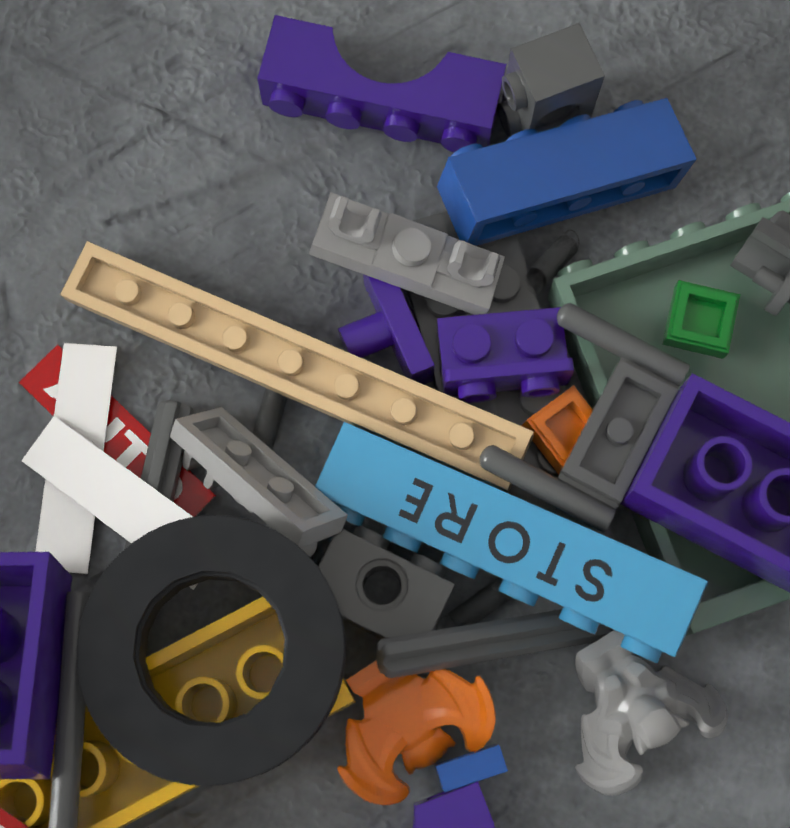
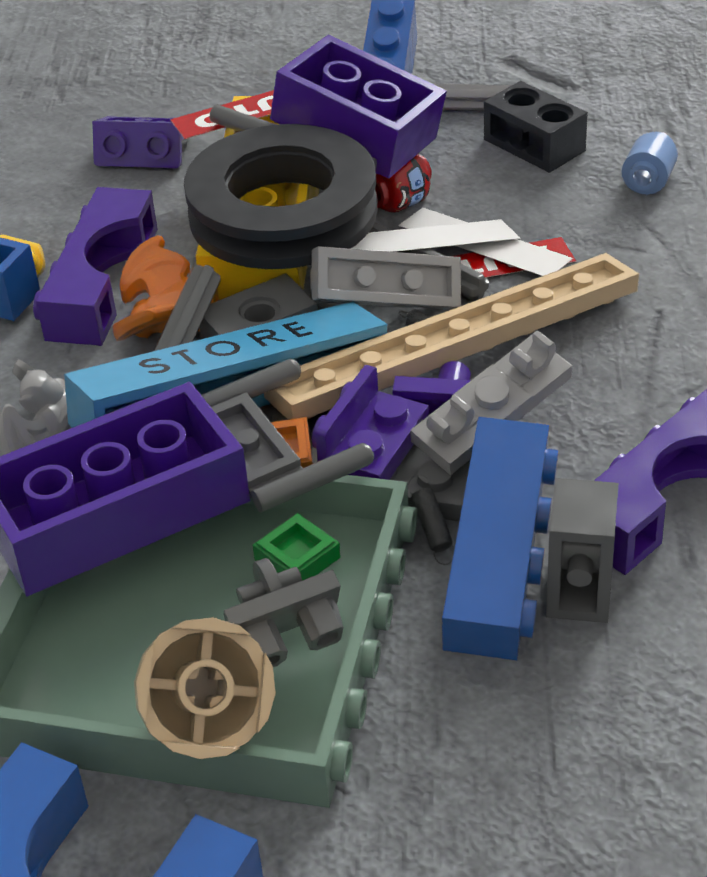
camera: 125 degrees right, 35 degrees down
(470, 767) = (105, 313): blue tile -> none

